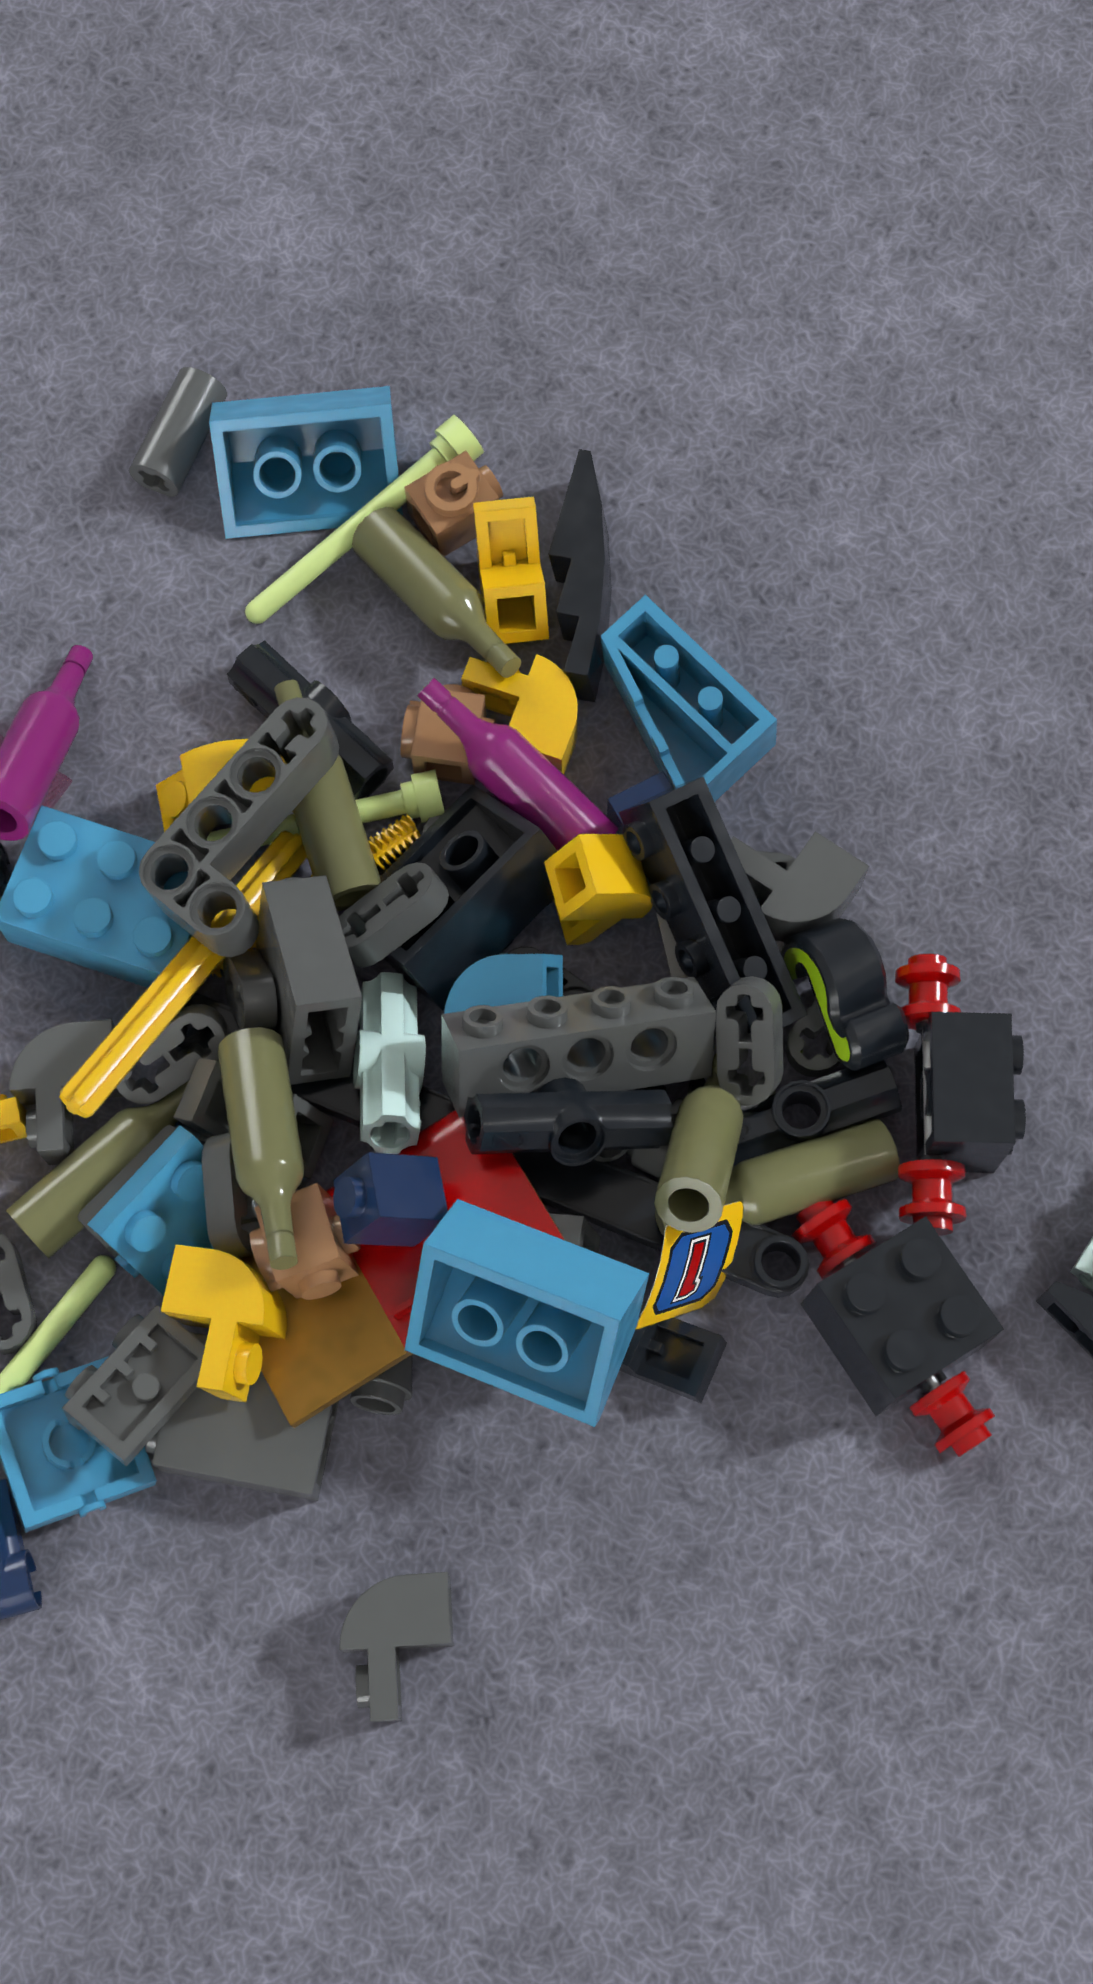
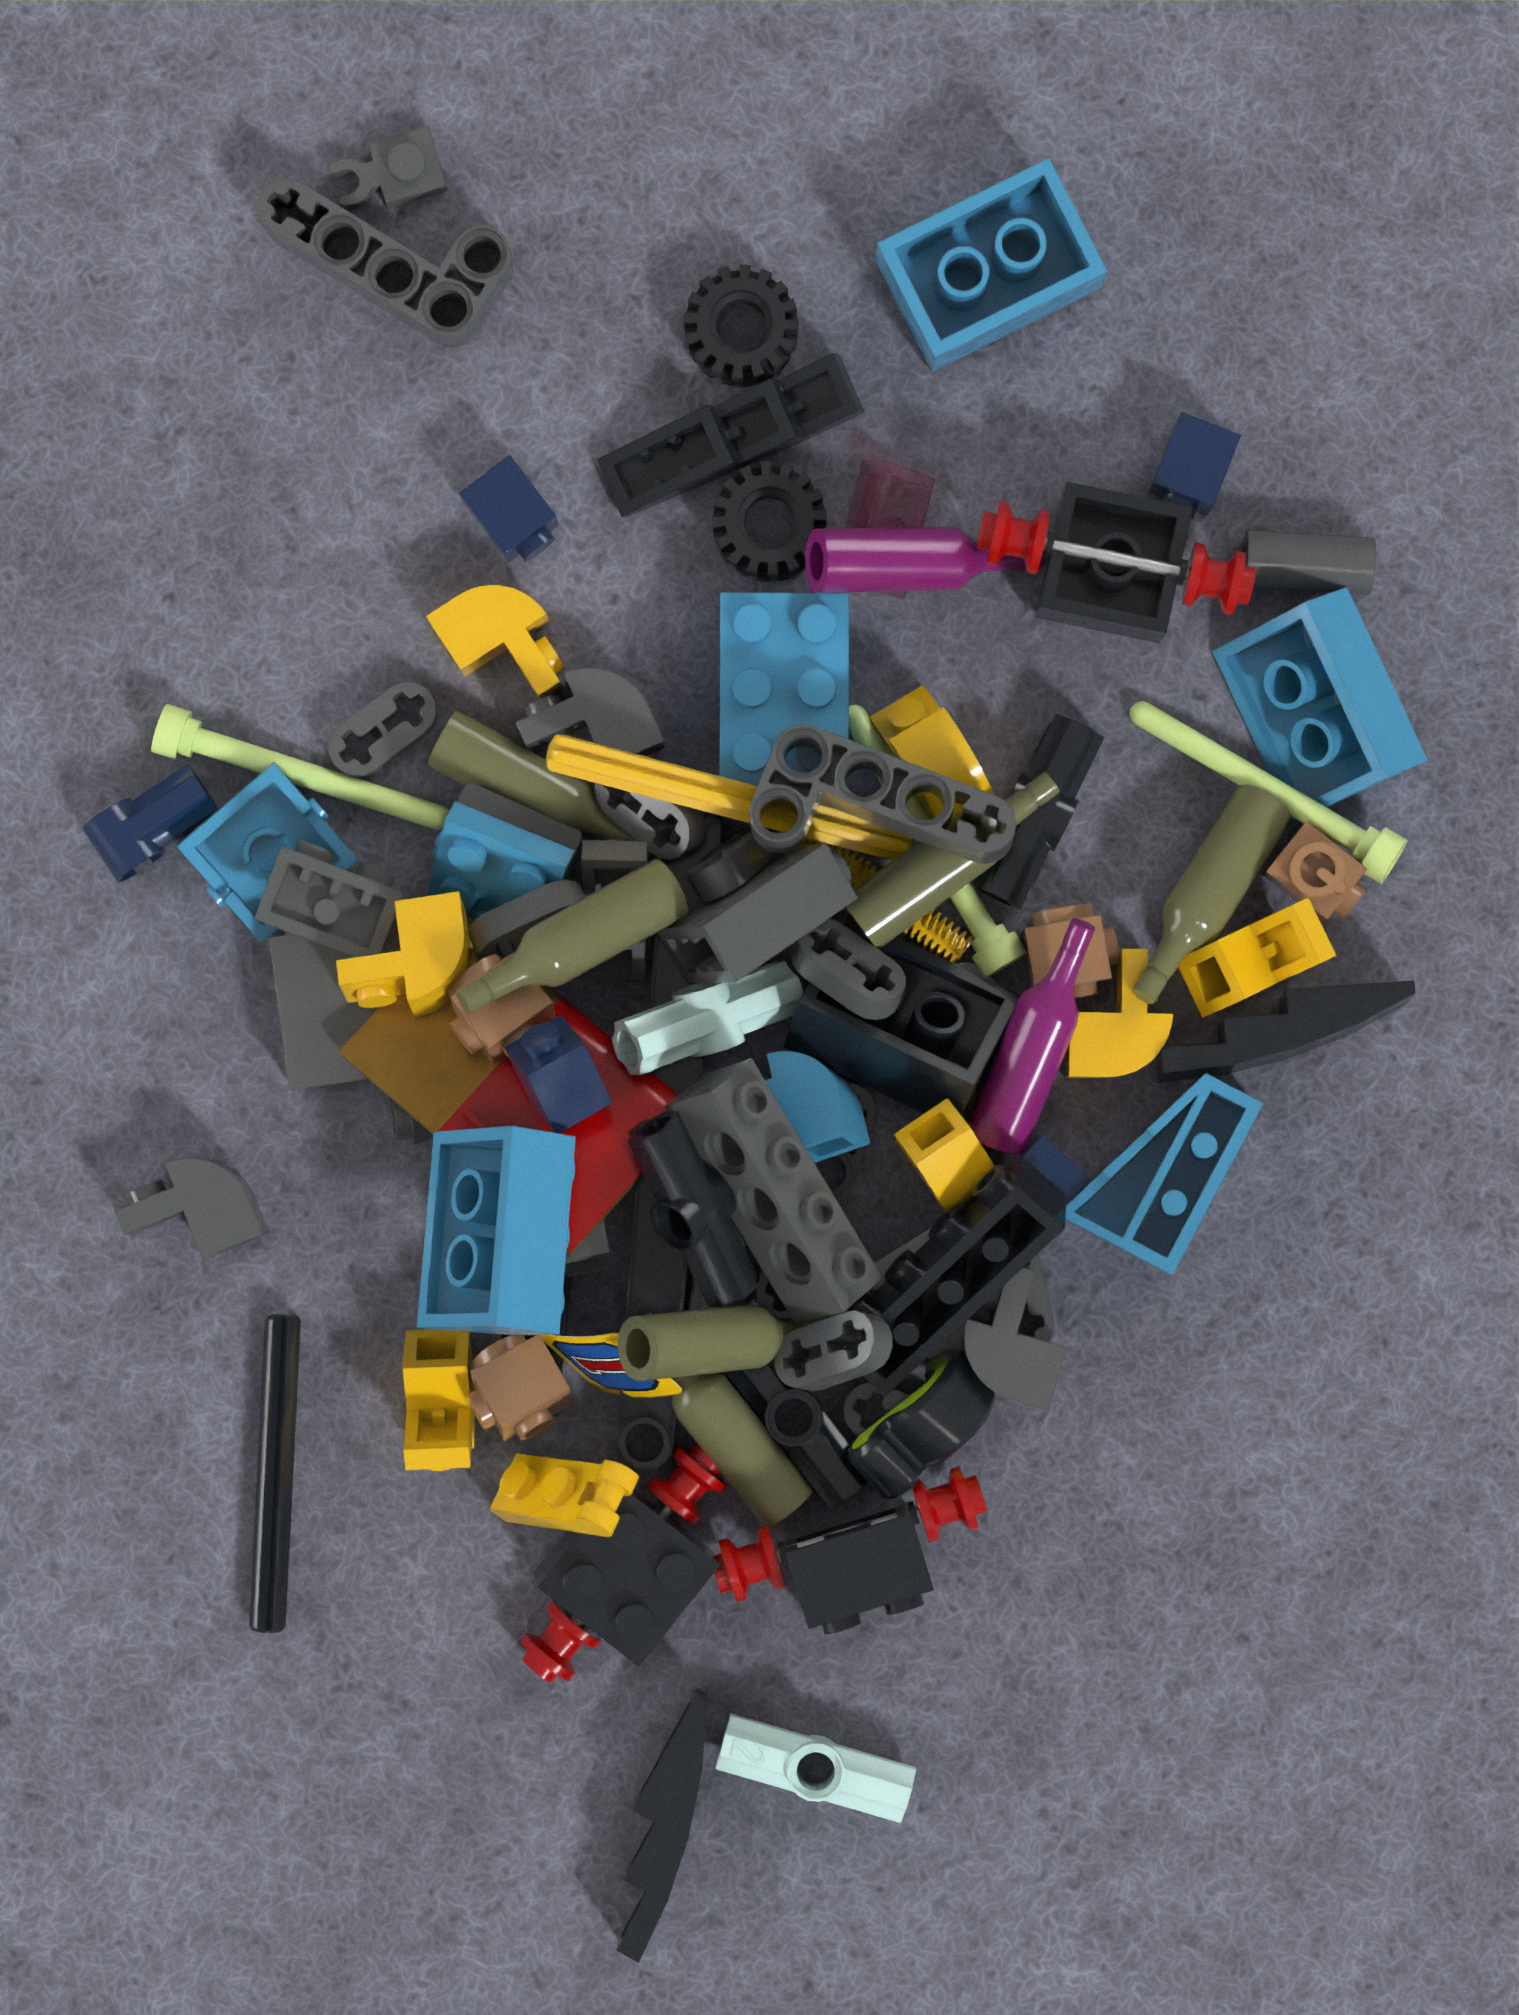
camera: 70 degrees right, 15 degrees up
(54, 494) = (1194, 464): none -> dark blue brick
(111, 575) = (1115, 561): none -> black brick
(674, 1451) = (438, 1413): none -> yellow brick
(687, 1360) = (517, 1387): none -> medium nougat brick
(696, 1651) = (275, 1473): none -> black axle
(809, 1347) = (563, 1494): none -> yellow plate

